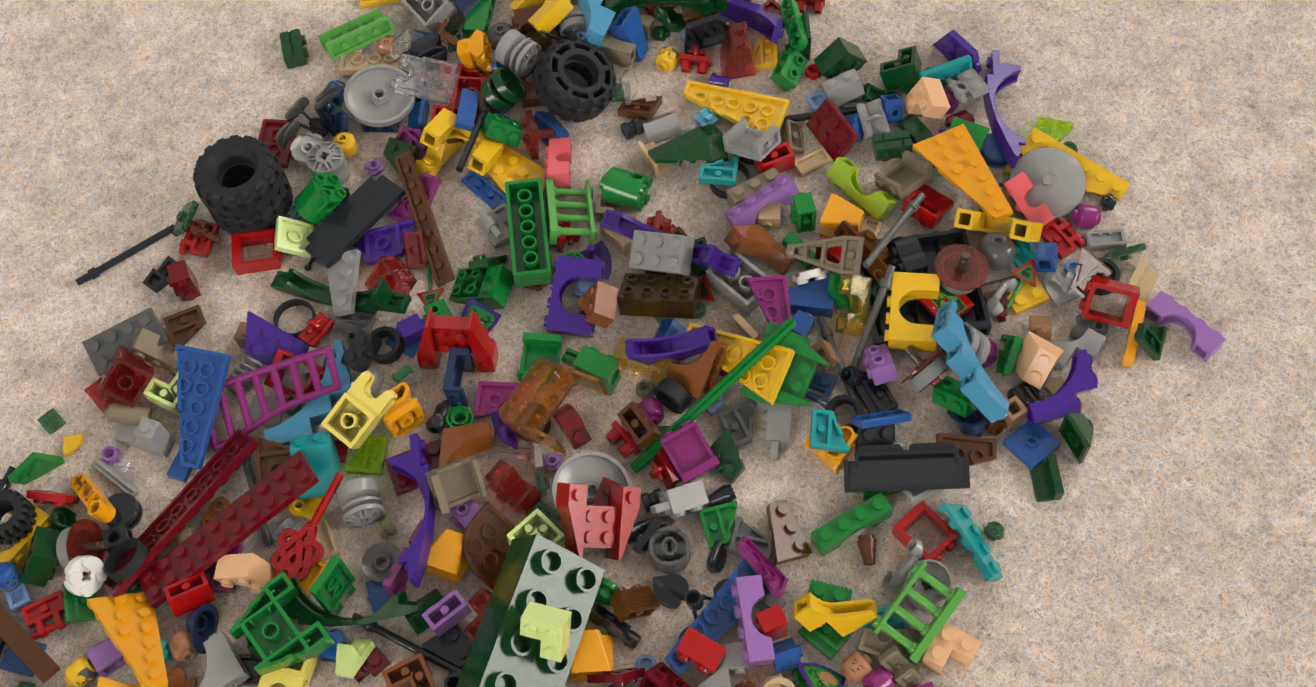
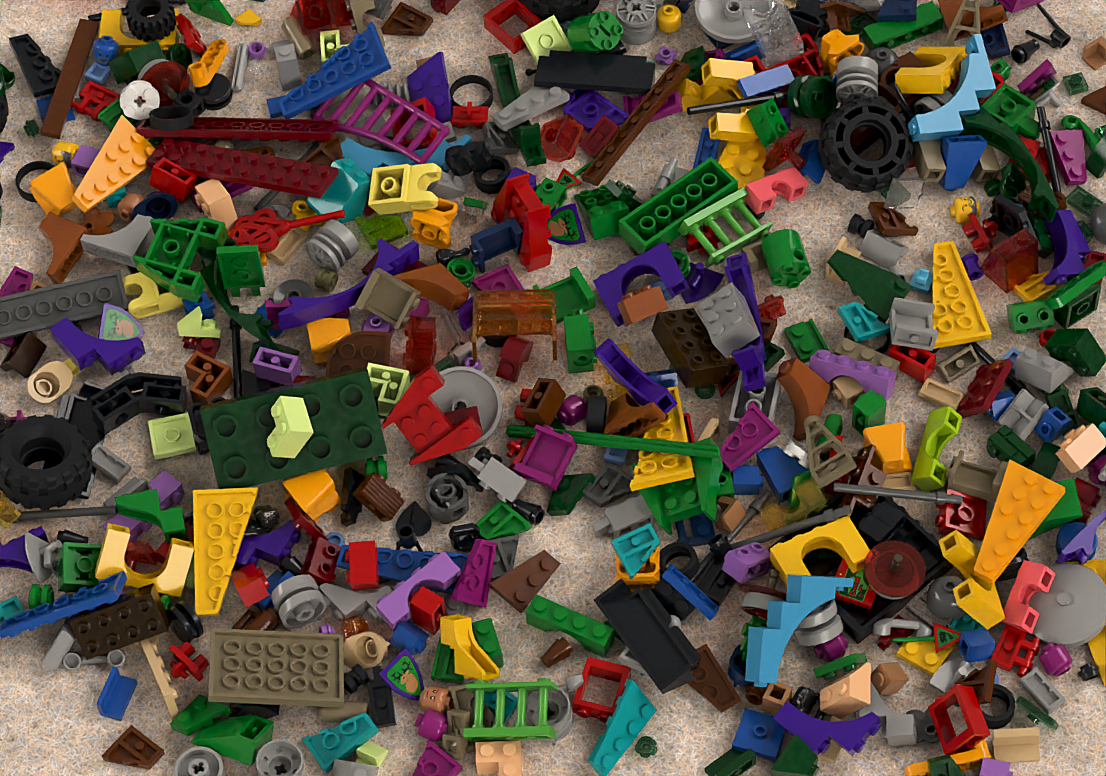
camera: 55 degrees right, 5 degrees down
(702, 219) = (805, 339): none -> green plate

